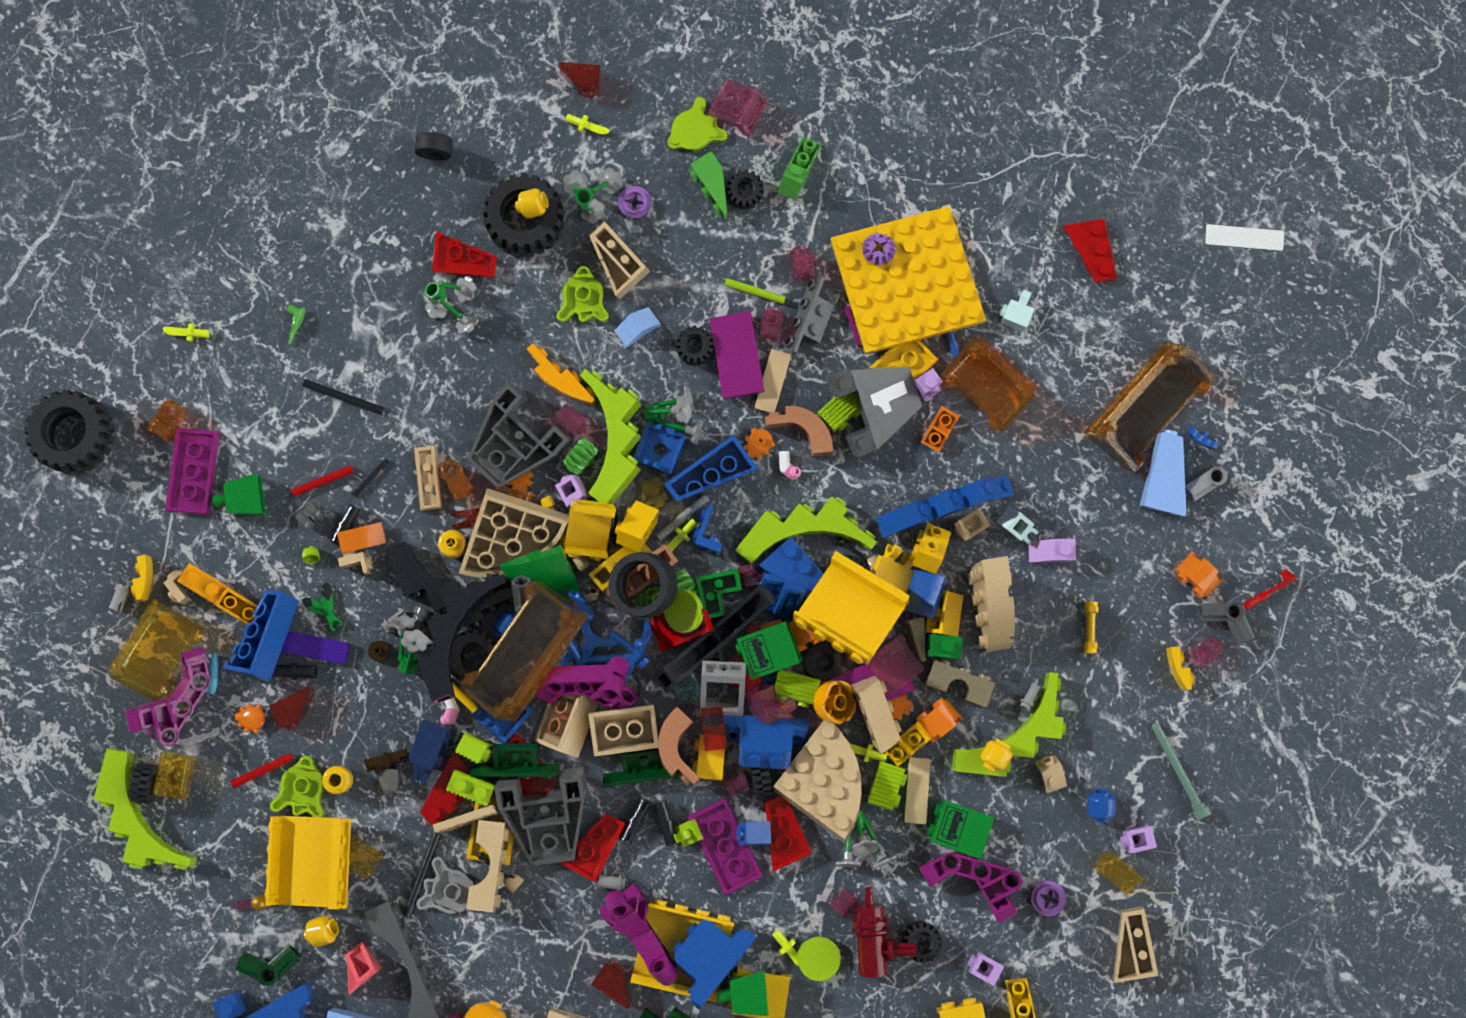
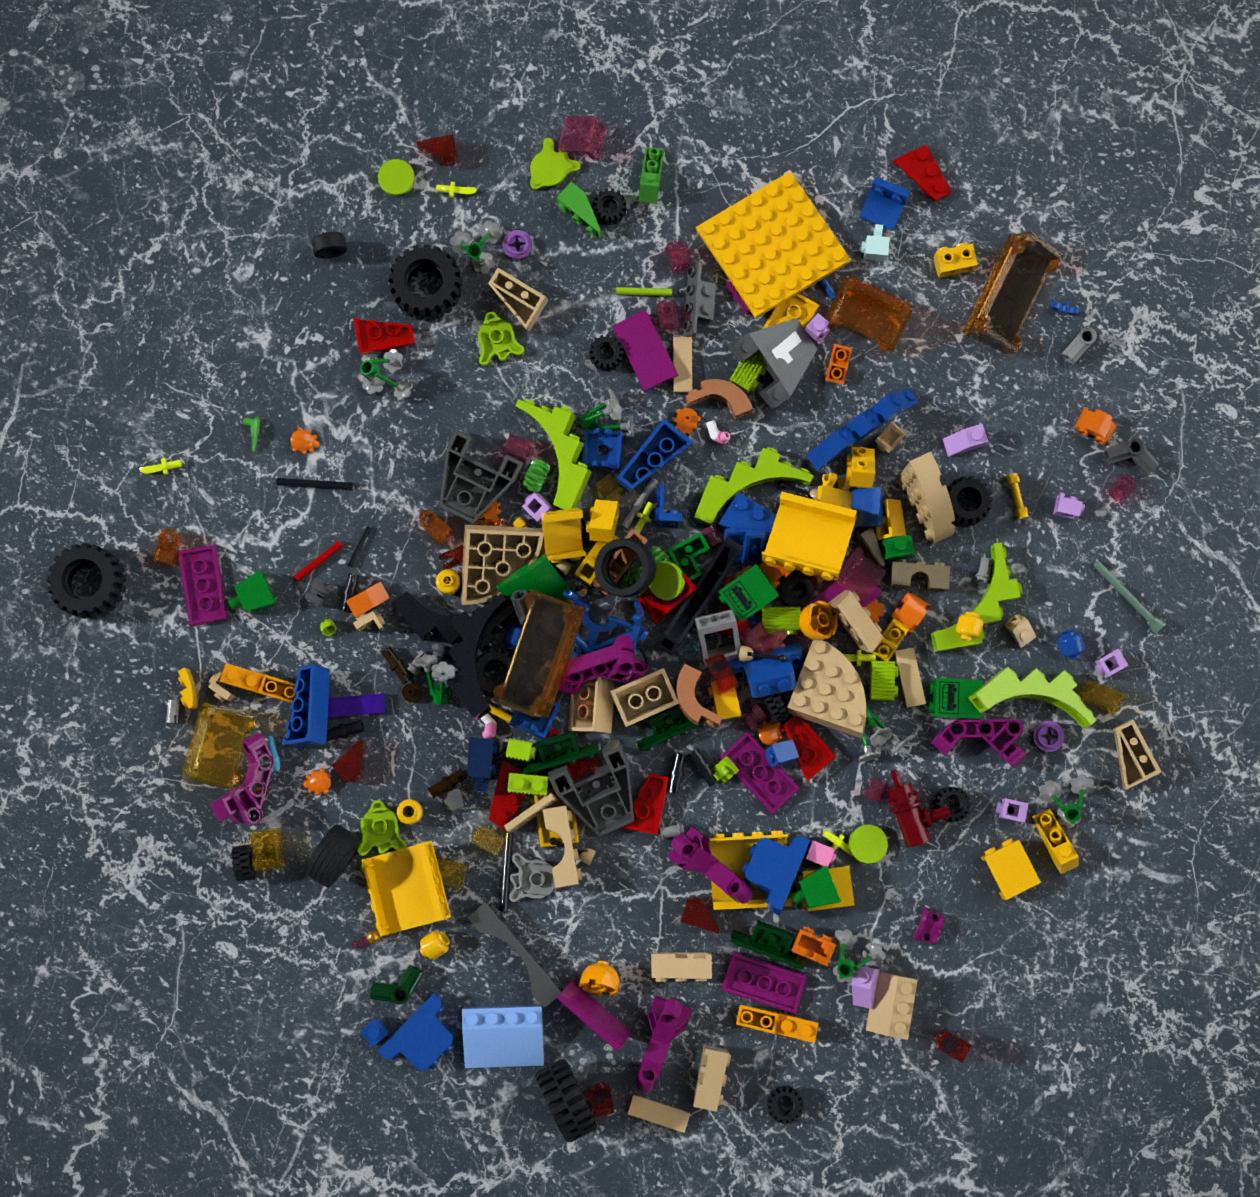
camera: 10 degrees left, 0 degrees up
(127, 818) = (257, 916): lime arch -> none
(239, 804) = (332, 855): none -> black tyre
(261, 770) = (347, 818): red bar -> none
(325, 608) = (354, 669): green piece -> none
(345, 347) = (304, 441): none -> orange piece
(360, 966) = (477, 966): coral slope -> none
(371, 617) = (396, 665): none -> dark brown pin
(412, 834) = (488, 839): none -> clear yellow bracket
(428, 478) = (409, 532): tan tile -> none
(527, 94) = (396, 177): none -> lime tile
(531, 203) = (431, 268): yellow head -> none
(565, 383) = (504, 417): light orange slope -> none
(636, 326) = (550, 351): light blue slope -> none
(748, 715) = (746, 654): none -> hinge
(748, 807) = (770, 732): none -> orange piece
(763, 954) = (820, 854): none -> bright pink brick
(877, 257) = (741, 232): medium lavender gear -> none
(1016, 524) = (928, 426): light aqua brick -> none
(1039, 270) = (884, 203): none -> blue bracket
(1045, 989) = (1069, 813): none -> light grey plant
(1046, 838) = (1034, 685): none -> lime arch
(1052, 617) = (981, 495): none -> black tyre
(1098, 353) = (955, 260): none -> yellow brick
(1142, 655) = (1068, 507): none -> lavender brick
(1166, 476) = (1044, 350): light blue slope -> none
(1183, 676) = (1108, 514): yellow slope -> none
(1244, 237) = (1051, 126): white sticker -> none
(1288, 578) = (1173, 407): red piece -> none

